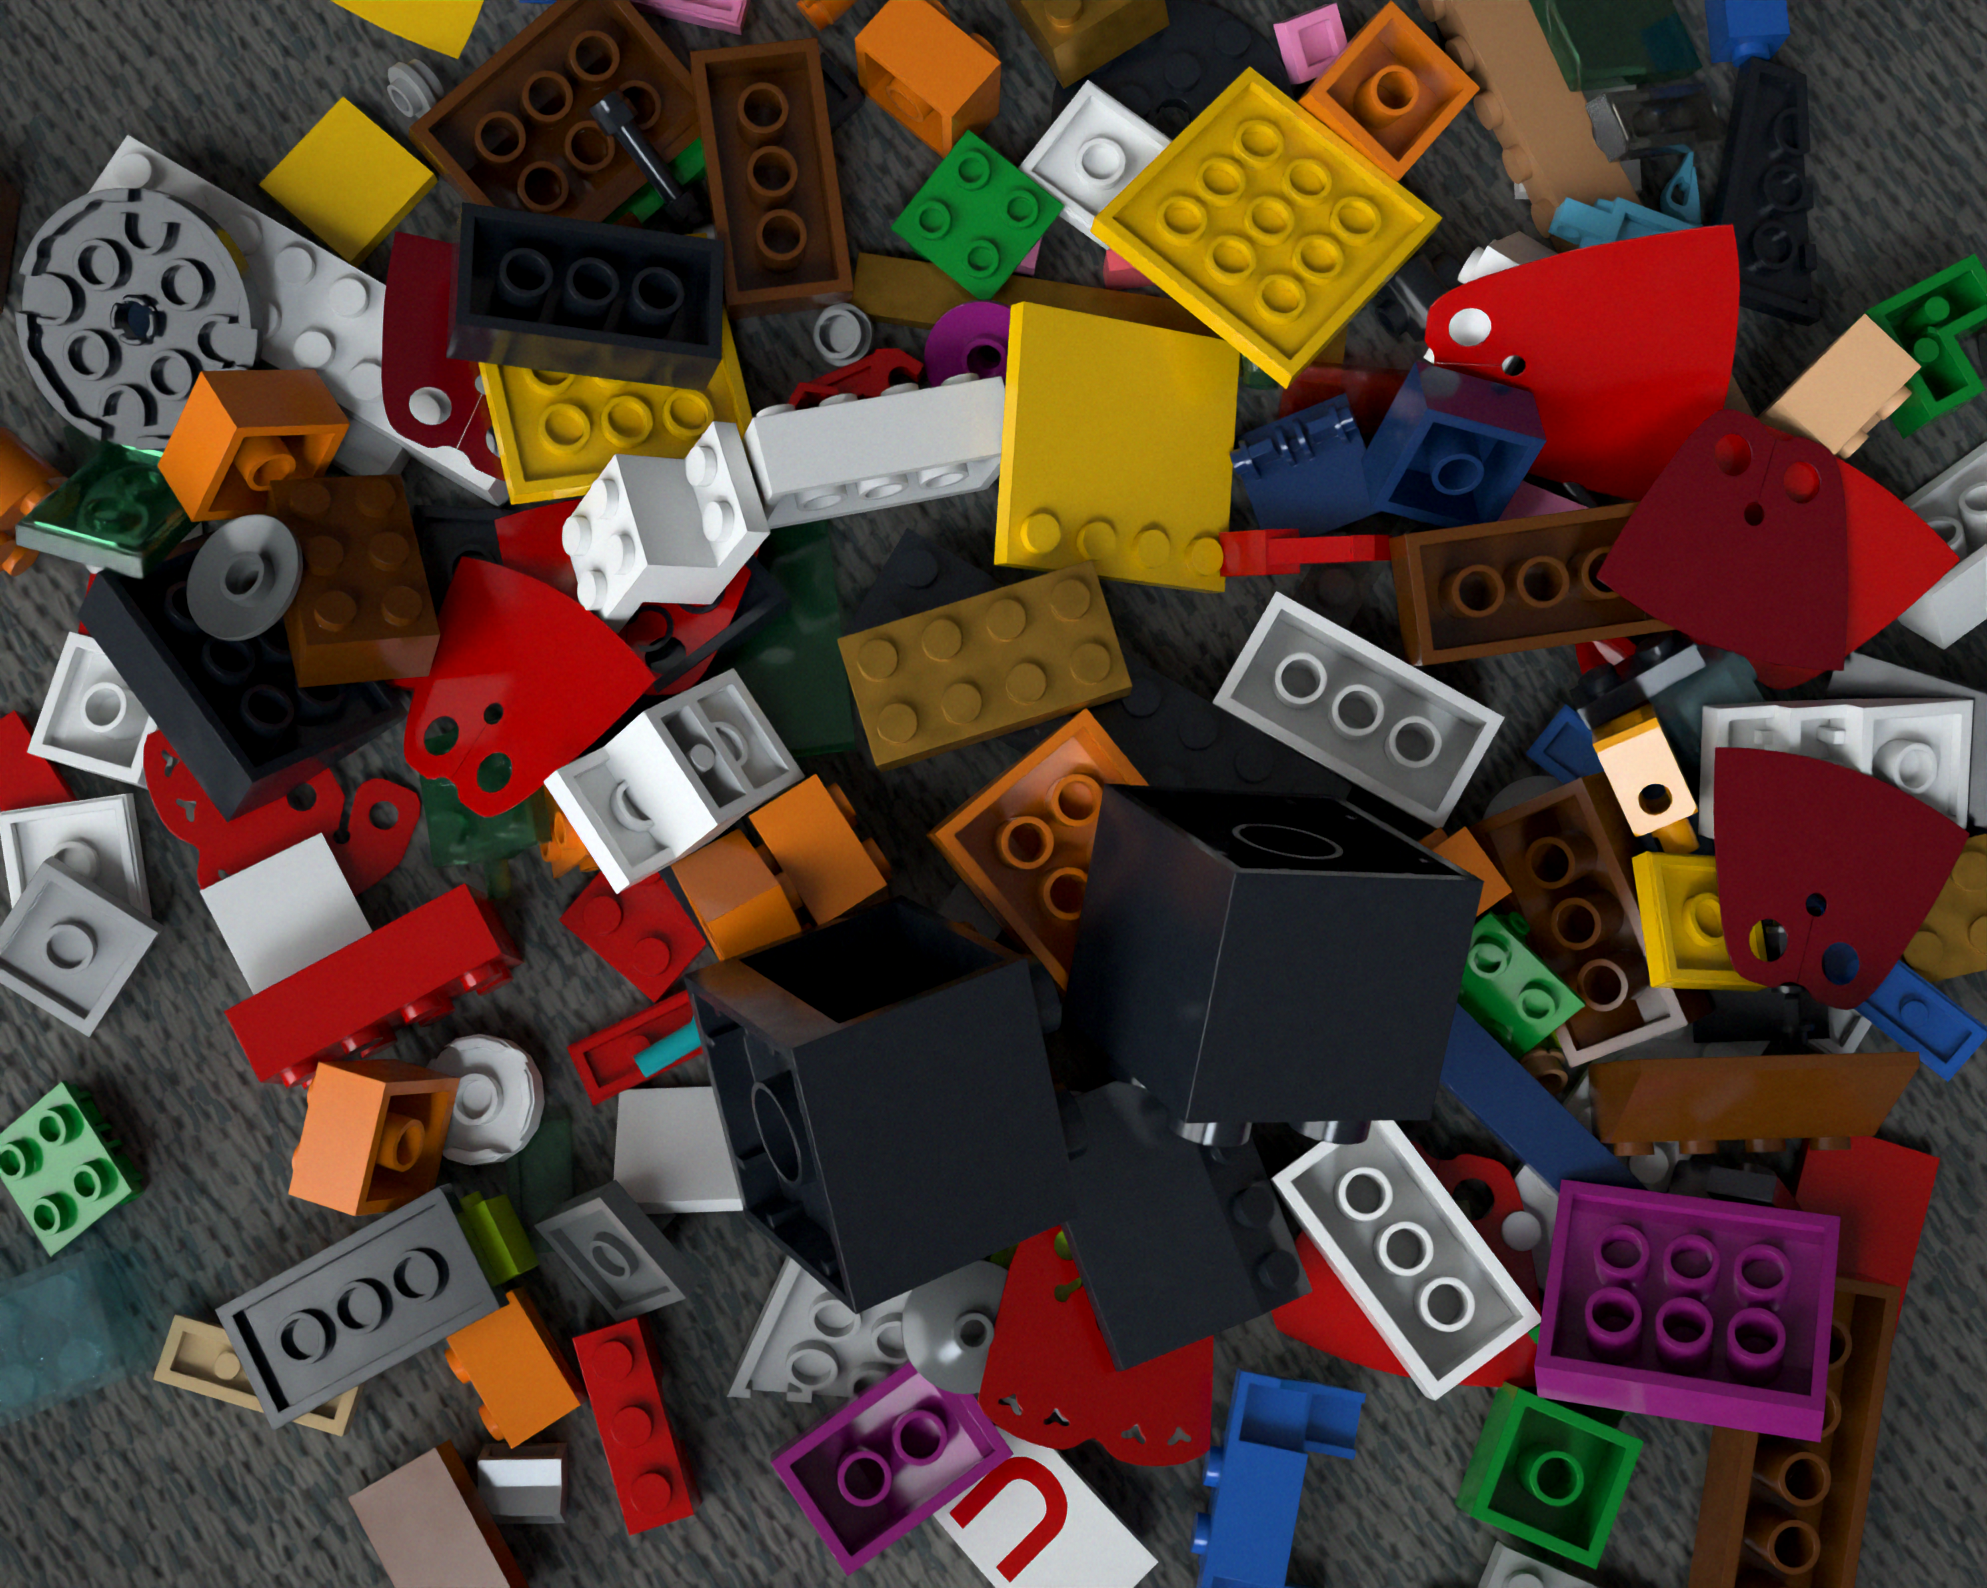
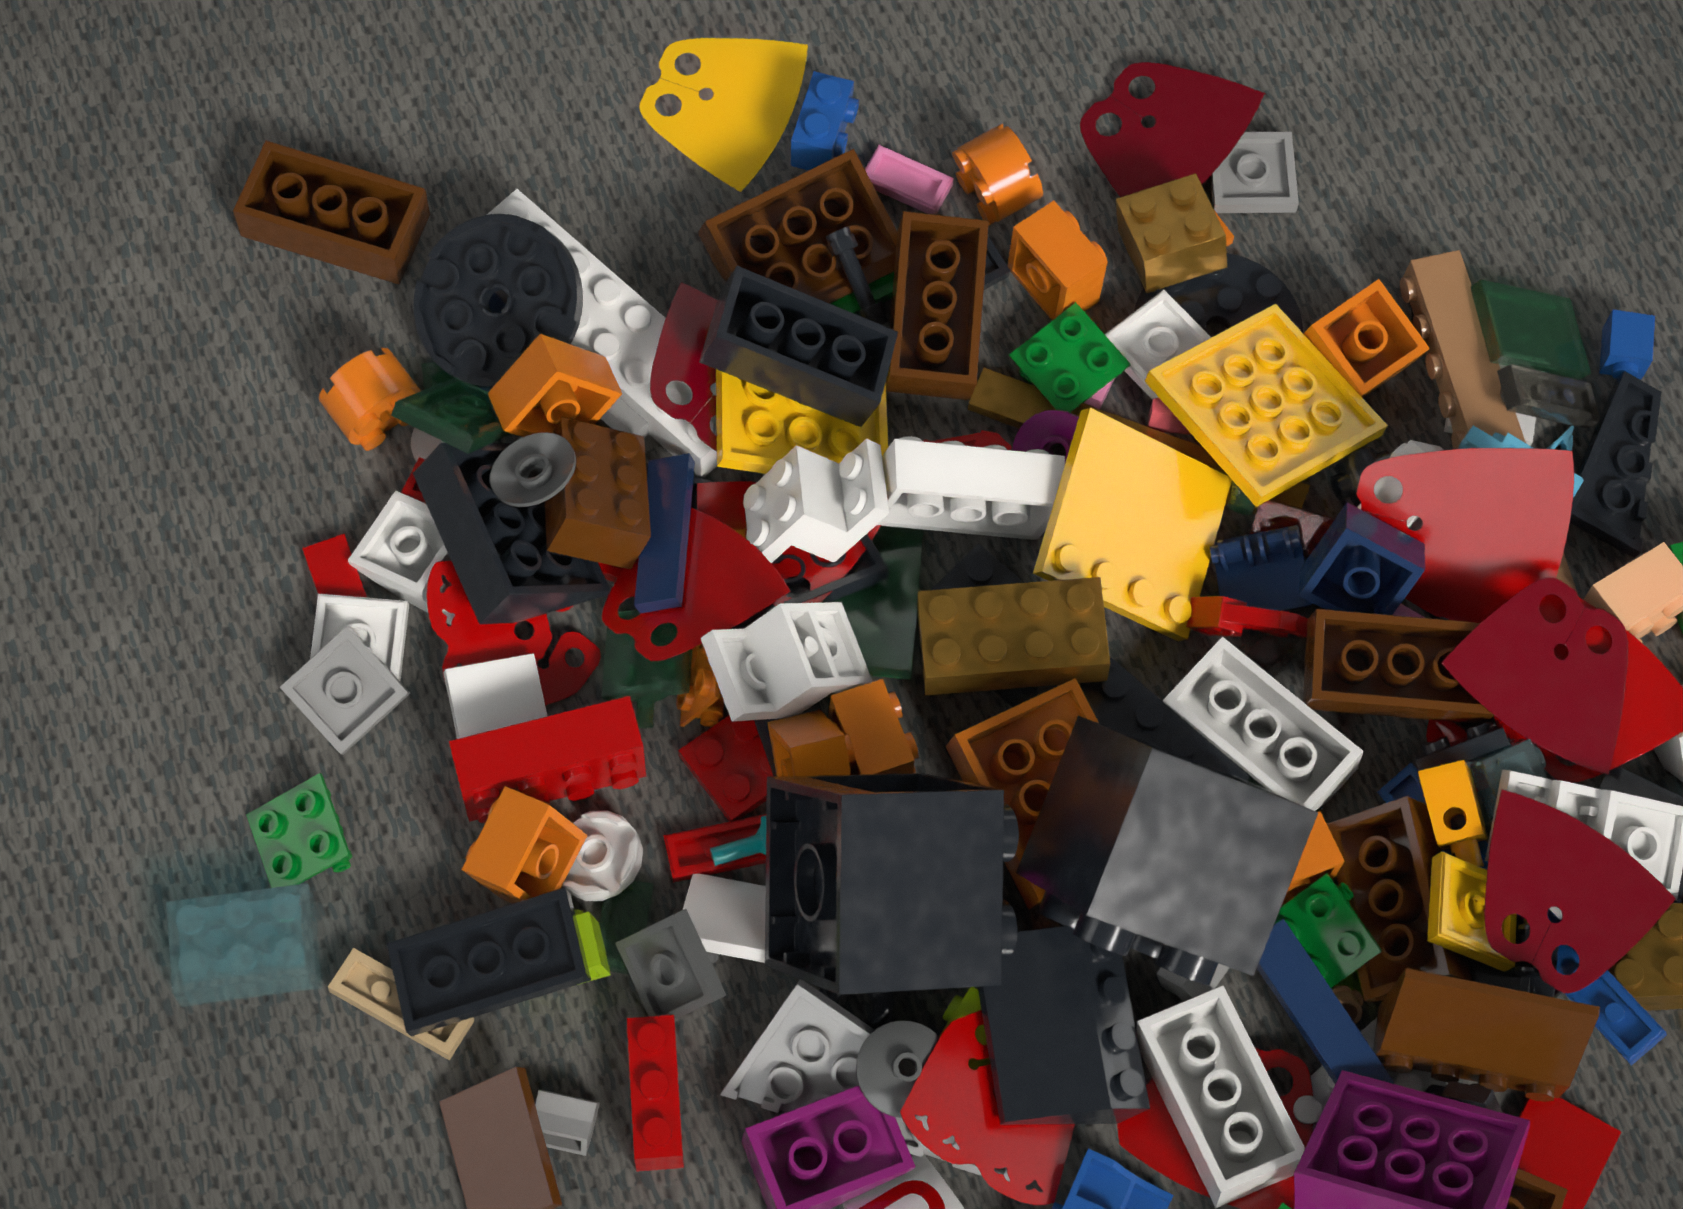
camera: 15 degrees right, 15 degrees down
(348, 182) = (650, 251): yellow tile -> none
(414, 88) = (708, 201): light grey plate -> none
(463, 597) = (664, 556): none -> dark blue tile
(515, 1370) = (578, 1038): orange brick -> none
(843, 334) = (961, 416): dark grey plate -> none
(1310, 42) = (1320, 298): bright pink plate -> none

